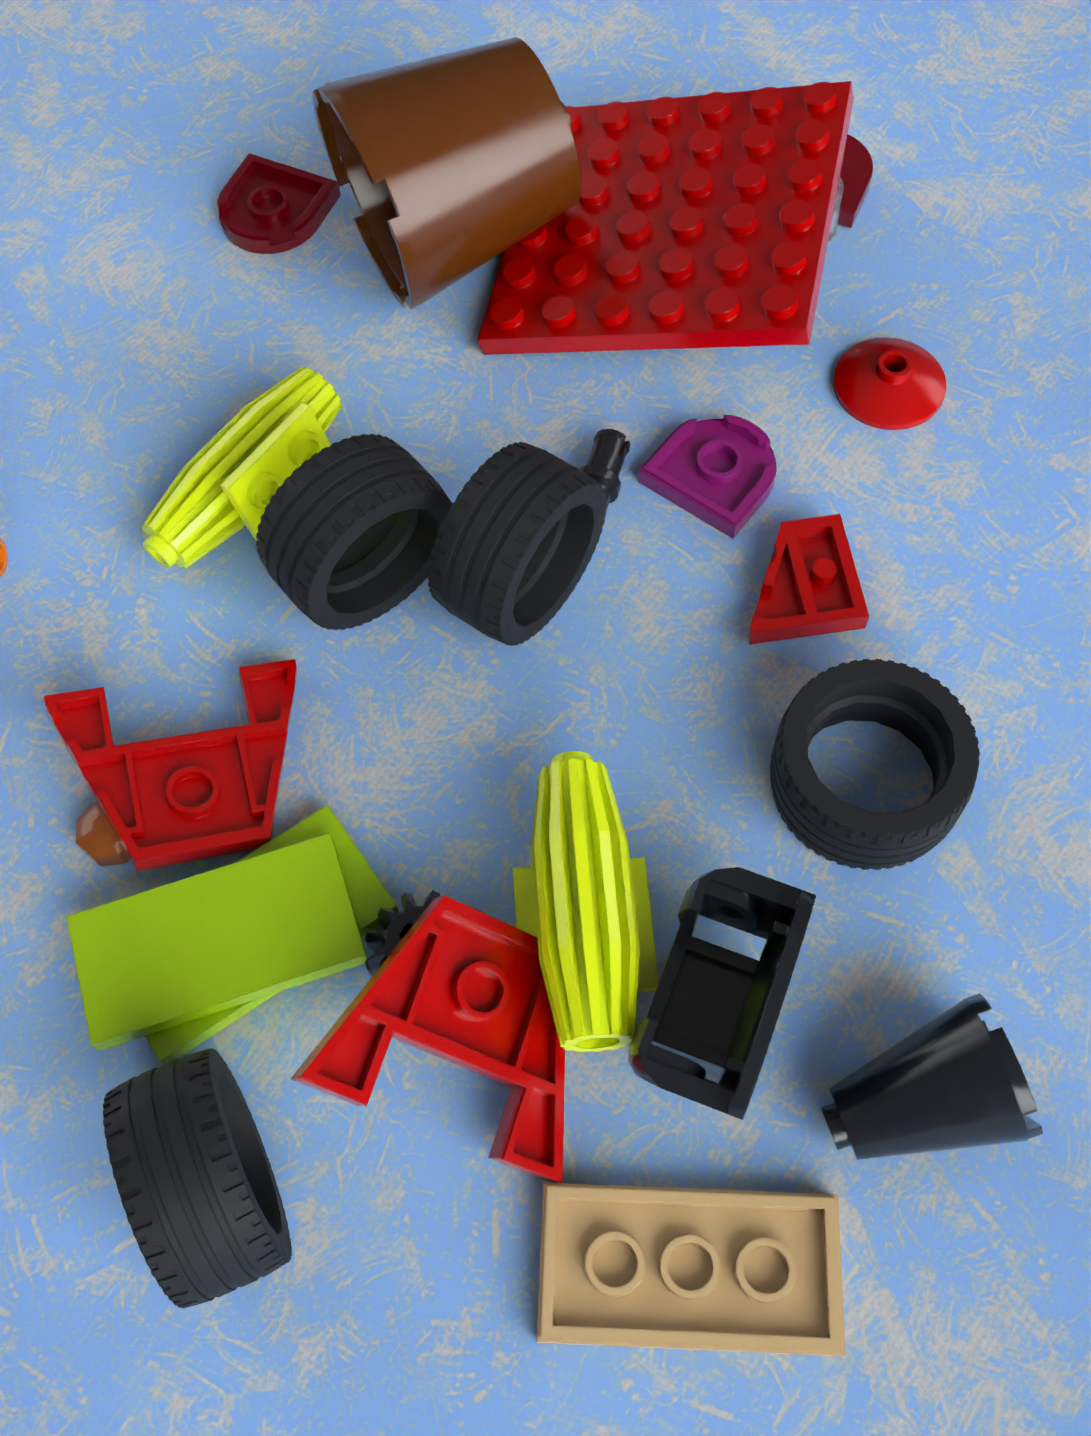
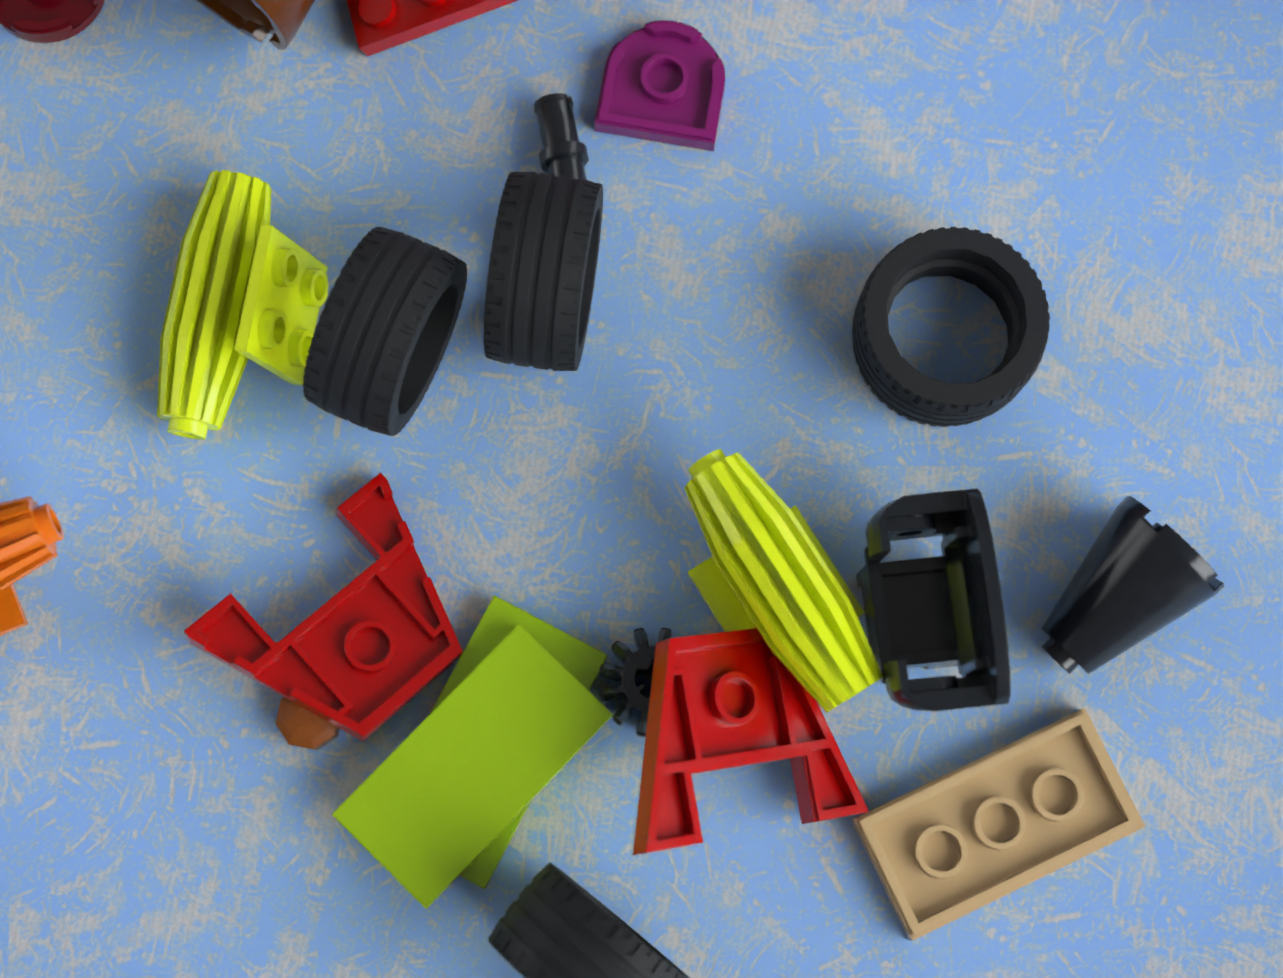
camera: 35 degrees left, 15 degrees up
(809, 584) = (808, 170): red wing -> none

